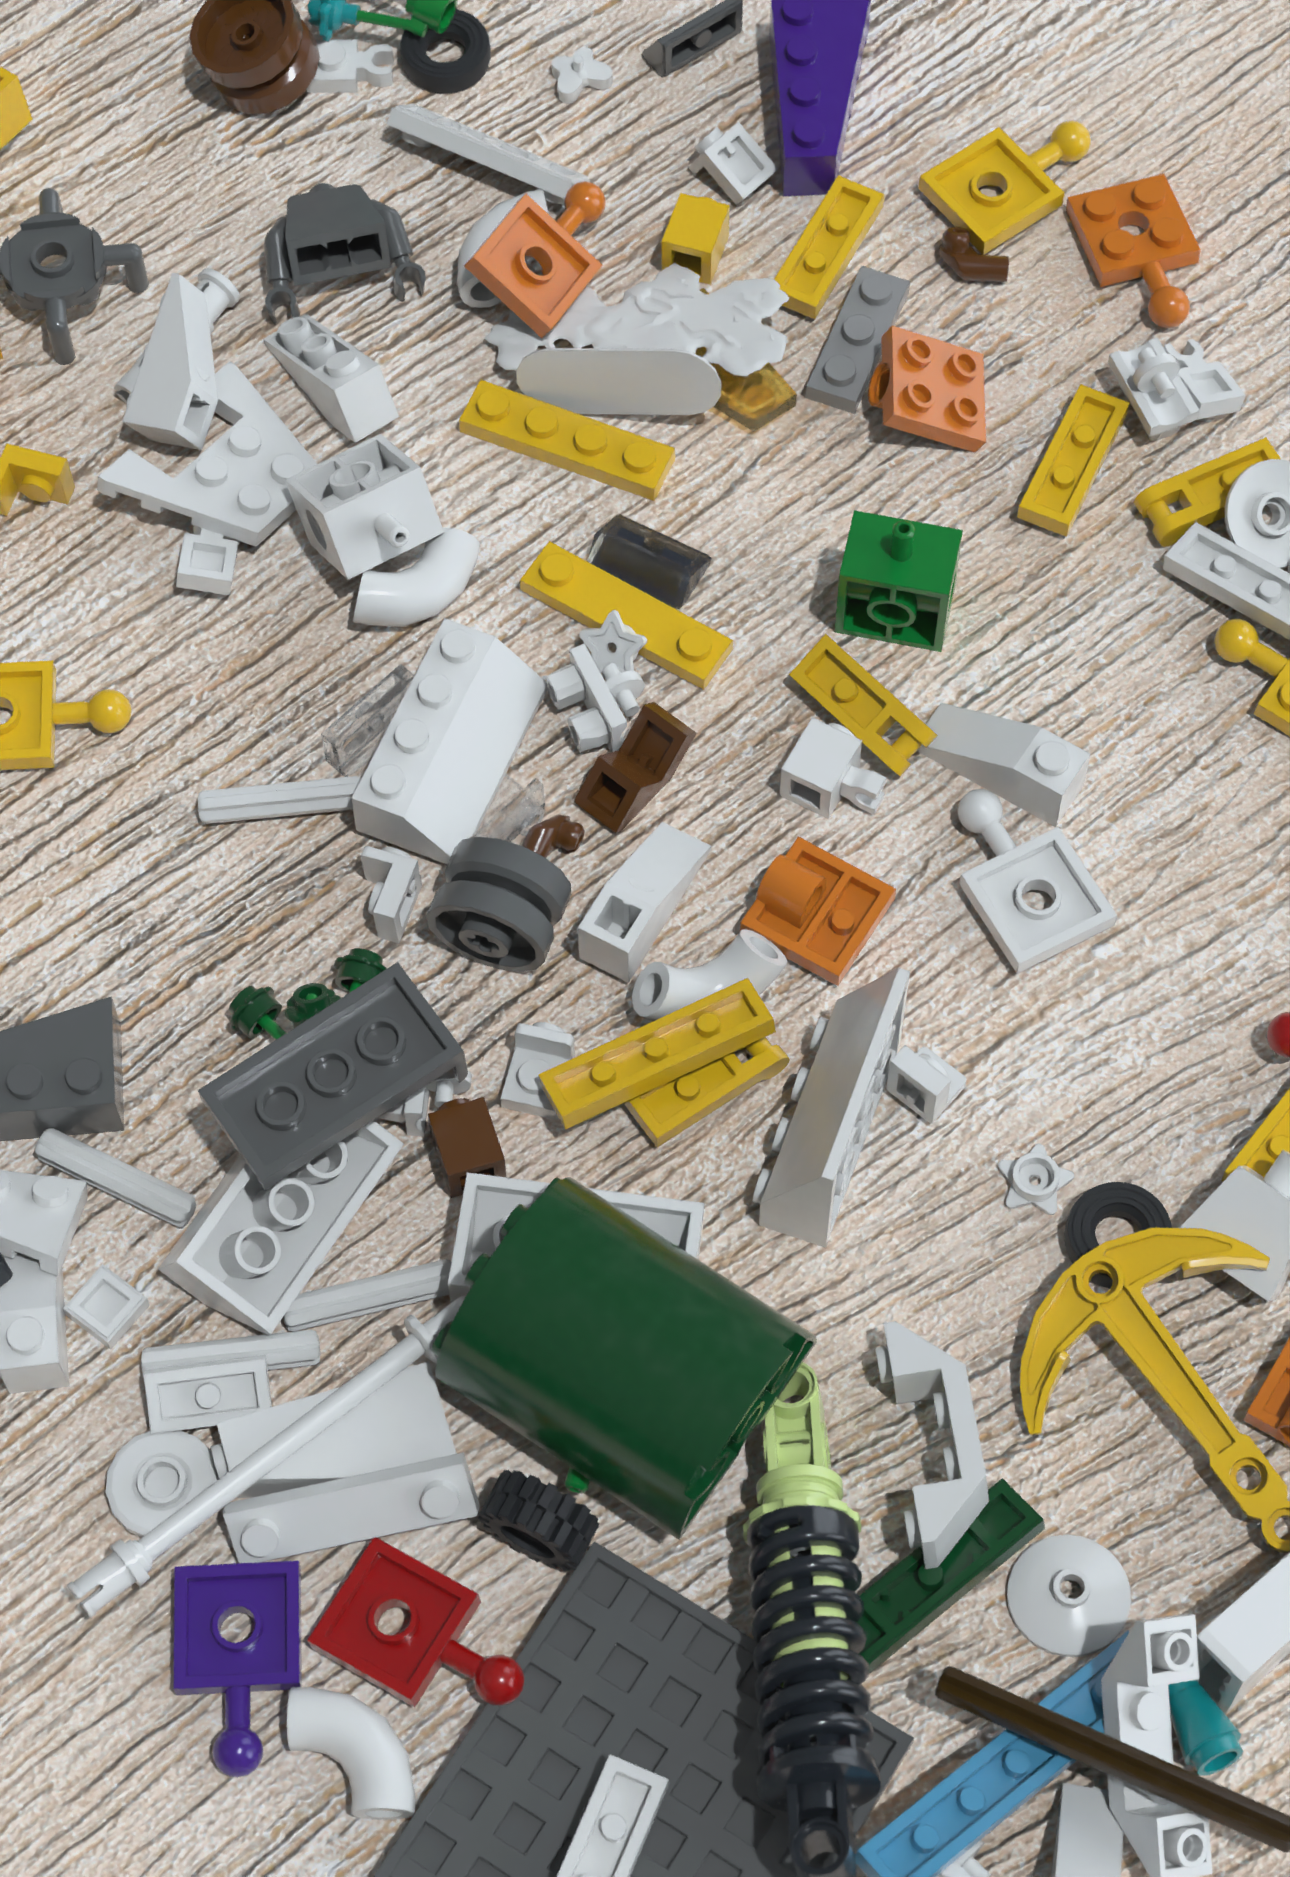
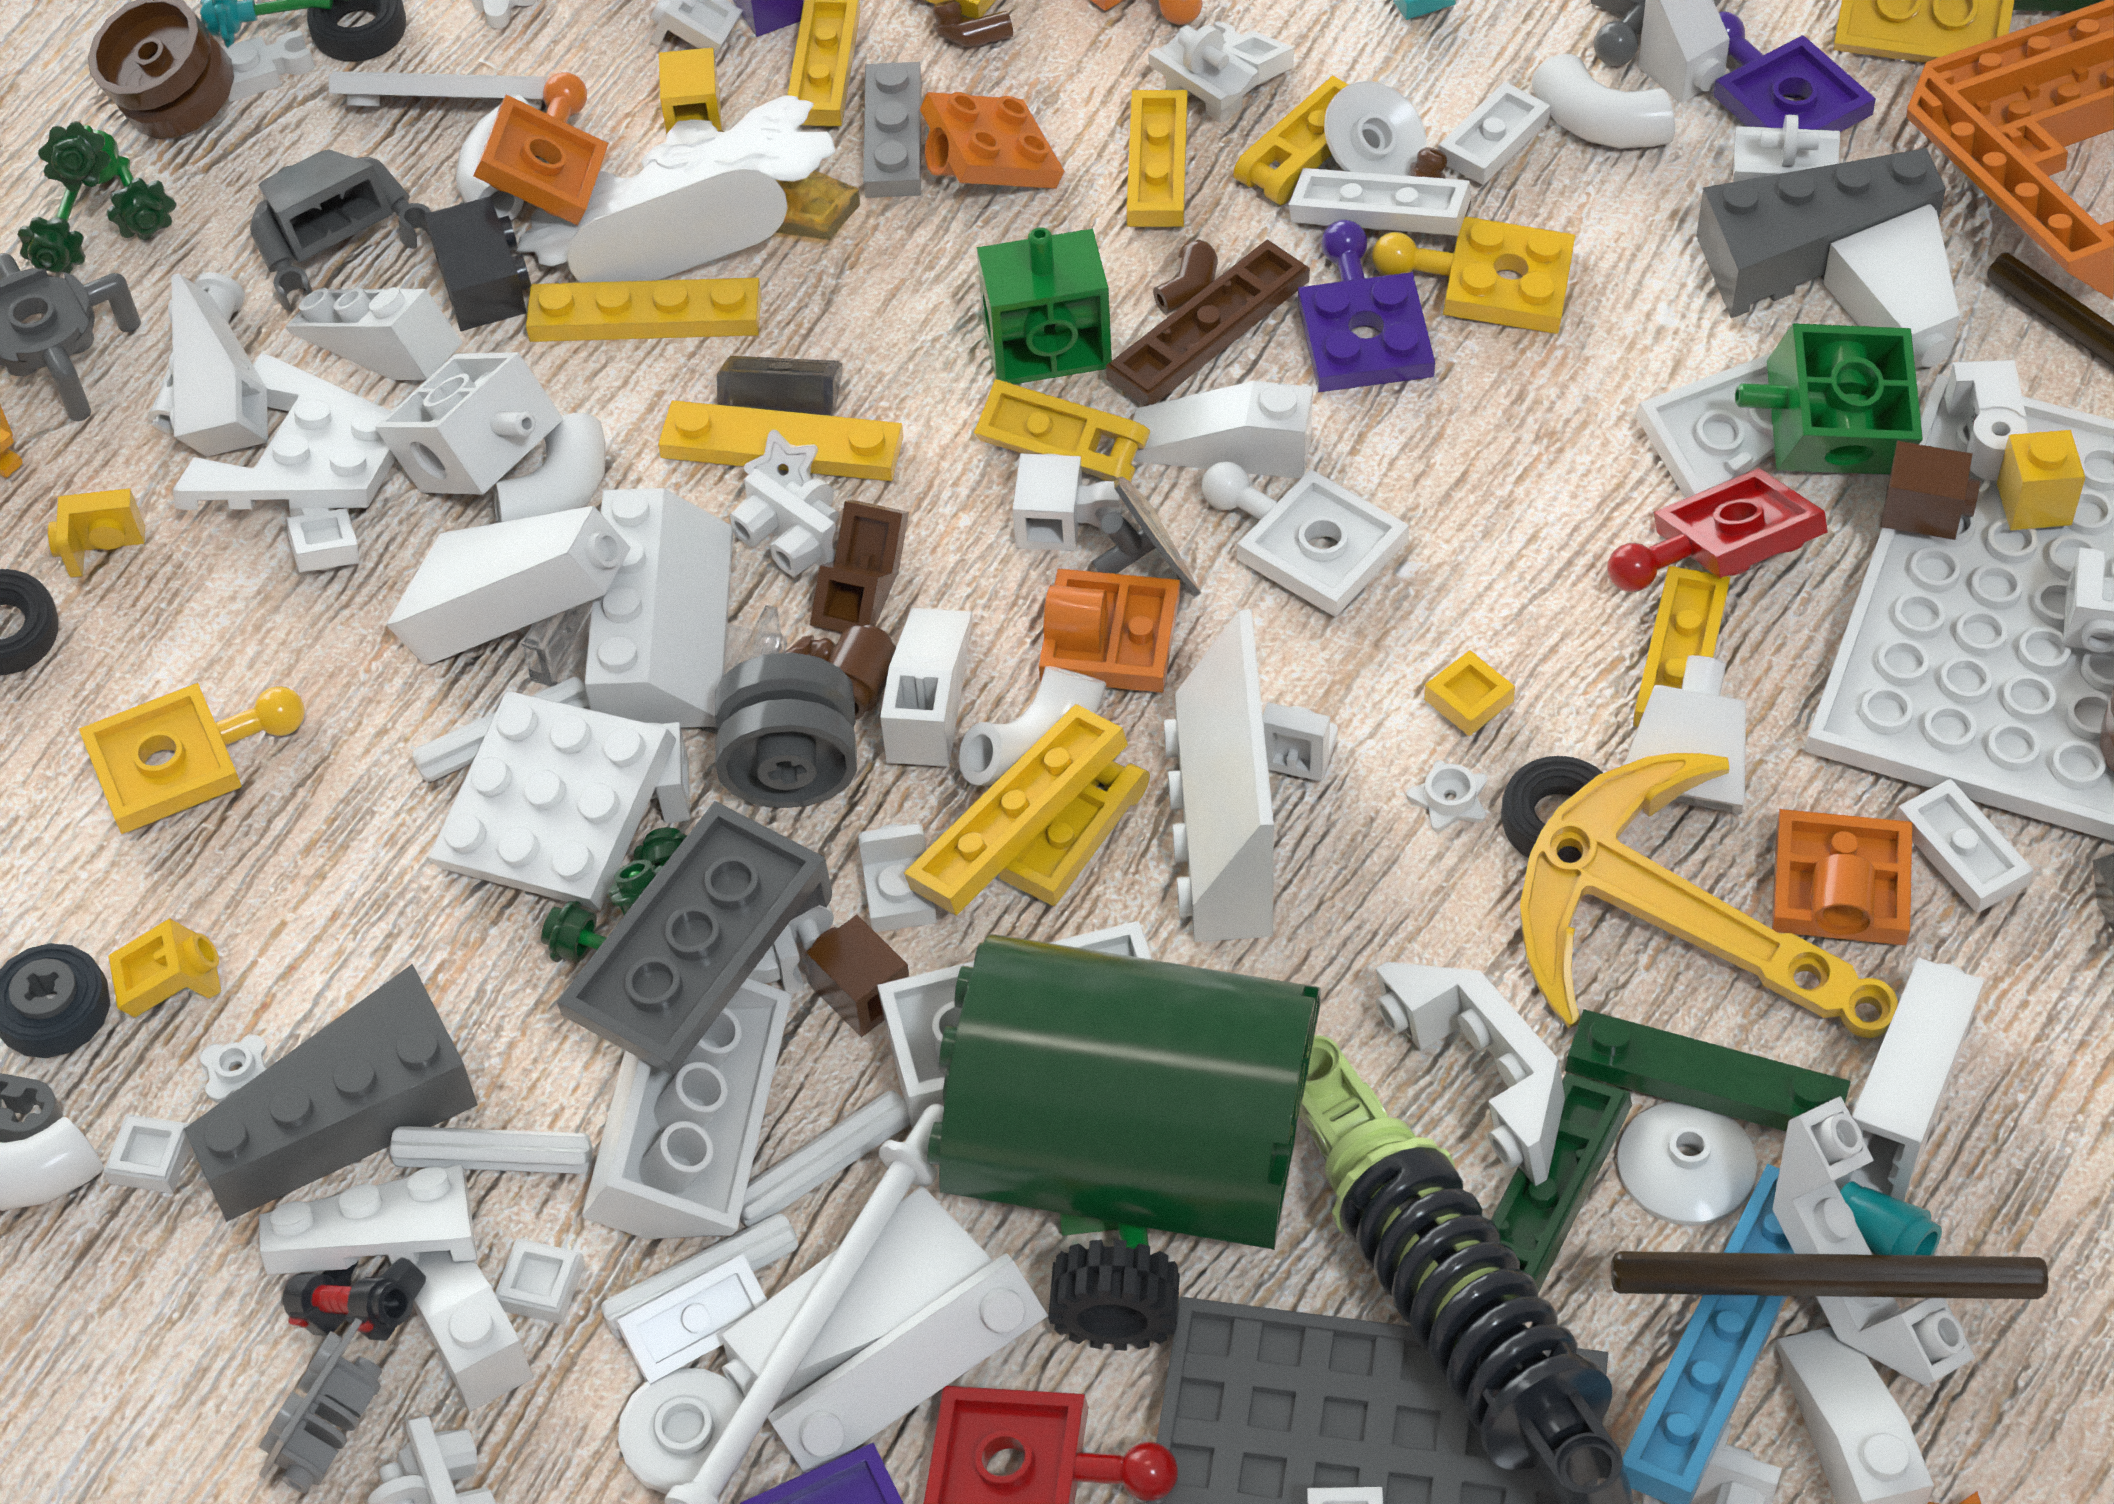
camera: 20 degrees left, 10 degrees down
(142, 125) = (90, 159): none -> dark green plant
(289, 887) = (553, 799): none -> white plate
(329, 670) = (505, 578): none -> white slope
(442, 342) = (477, 262): none -> black brick
(592, 862) = (865, 658): none -> reddish brown brick
(884, 829) = (1134, 544): none -> dark grey shield
(1040, 644) = (1207, 323): none -> reddish brown plate
(1051, 593) = (1196, 273): none -> reddish brown arm
(1093, 1094) = (1469, 692): none -> yellow plate
(1121, 1528) = (1697, 1072): none -> dark green plate
(1201, 681) = (1383, 302): none -> dark purple plate

